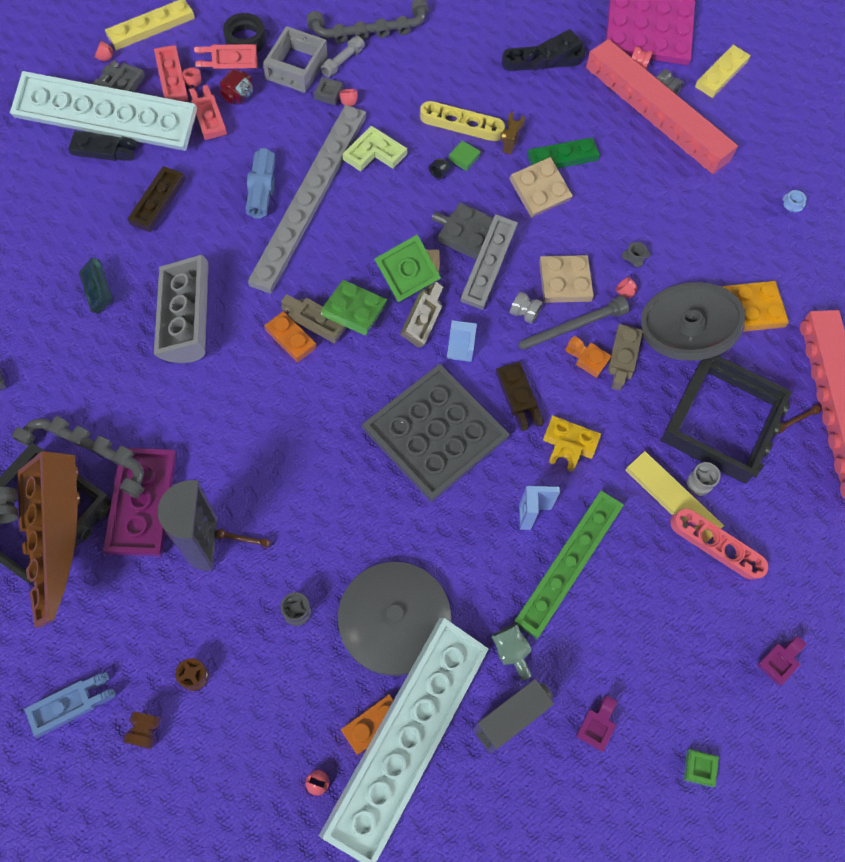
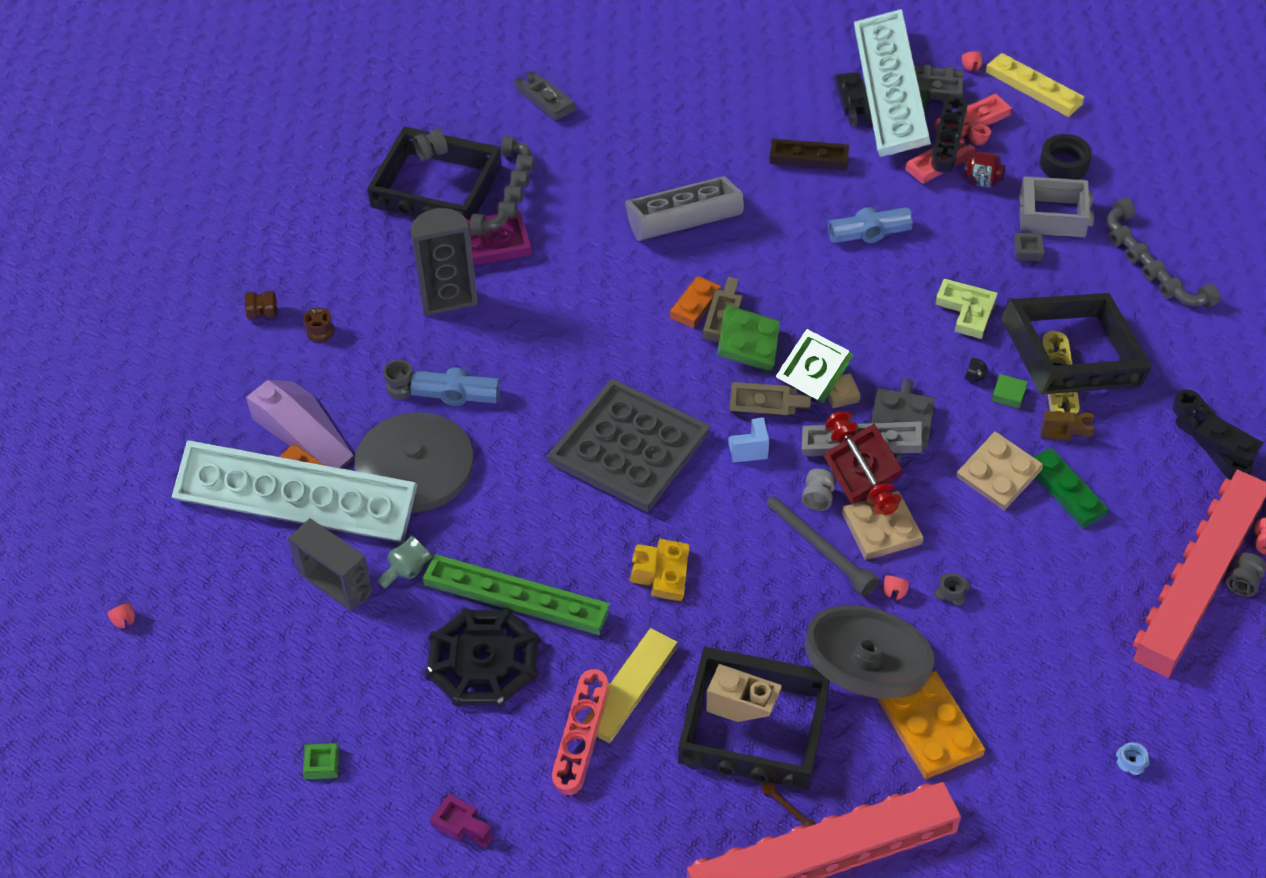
camera: 80 degrees right, 15 degrees down
(49, 517) = (423, 176): dark orange wedge -> none
(67, 705) = (273, 253): medium blue hinge -> none
(95, 285) = (694, 138): plate -> none
(192, 89) = (949, 133): none -> black beam
(220, 534) = (461, 310): reddish brown hinge -> none
(229, 56) = (1023, 152): coral hinge -> none
(306, 200) = (877, 270): light grey plate -> none
(309, 718) = (298, 420): none -> lavender wedge
(314, 789) = (247, 440): coral hinge -> none
(322, 559) = (455, 386): none -> medium blue piece
(330, 66) = (1111, 254): light grey bar -> none
(348, 96) = (1030, 265): coral hinge -> none
(441, 119) = (1053, 379): none -> pearl dark grey window
(518, 394) = (704, 511): dark brown hinge -> none
(522, 266) = (863, 463): none -> dark red plate
(535, 499) = (563, 535): light blue panel -> none
(590, 358) = (782, 570): orange plate -> none
(596, 727) = (342, 650): magenta plate -> none
(611, 613) = (485, 672): none -> black plate
(624, 355) = (796, 602): dark tan hinge -> none
(707, 474) = (660, 705): light grey wheel -> none
(731, 413) = (740, 695): none -> tan slope

